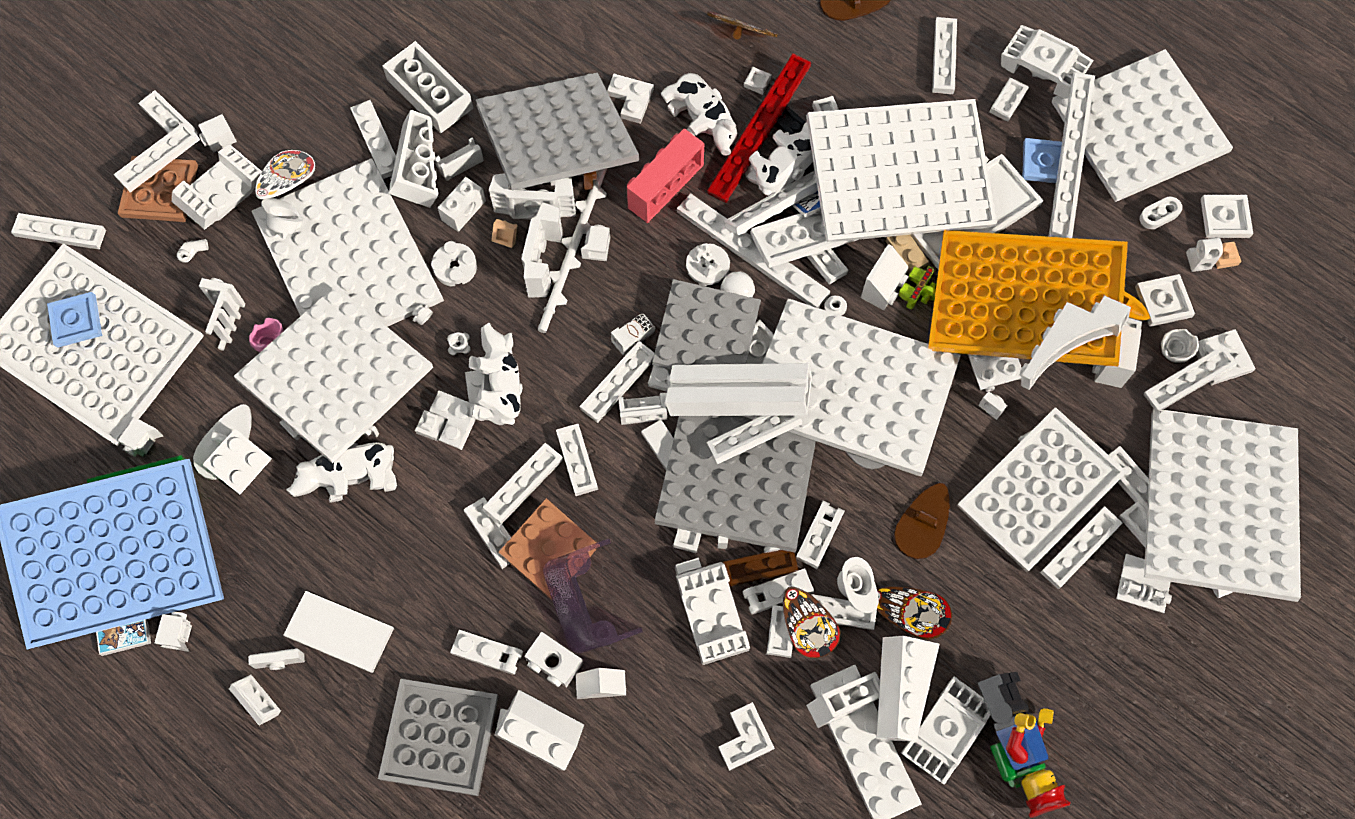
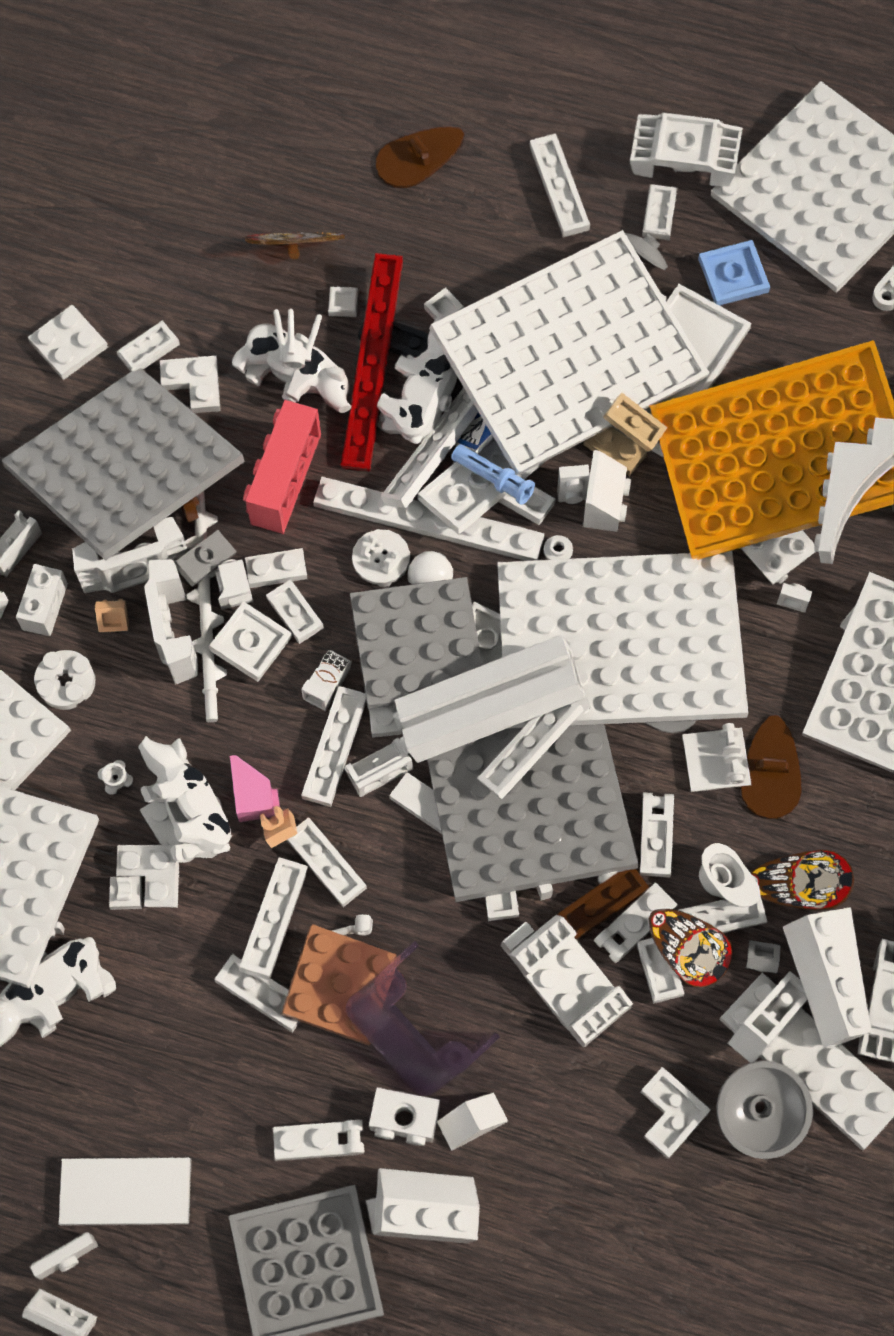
camera: 20 degrees left, 0 degrees up
(422, 314) = (52, 758): white plate -> none
(546, 391) = (252, 792): none -> bright pink slope
(554, 422) = (279, 827): none -> light nougat tile
(557, 39) = (67, 342): none -> white plate
(583, 515) = (362, 926): none -> white hand
(584, 217) = (204, 558): none -> light grey plate
(591, 286) = (250, 641): none -> white plate
(609, 62) = (148, 347): none -> white plate
(631, 244) = (276, 568): none -> white plate
(631, 278) = (294, 611): none -> white plate
(704, 100) = (294, 354): none -> white plant
(815, 241) = (503, 479): none -> light blue pin
(816, 782) = (782, 1121): none -> light grey dish
(860, 653) = (763, 956): none -> light grey plate
(864, 262) = (573, 483): none -> white plate
(887, 498) = (716, 759): none -> white hinge
(912, 294) = (644, 499): lime hips -> none
(927, 236) = (635, 422): none -> tan plate
(989, 121) = (648, 249): none -> light grey dish
(1071, 155) = (764, 257): white tile -> none

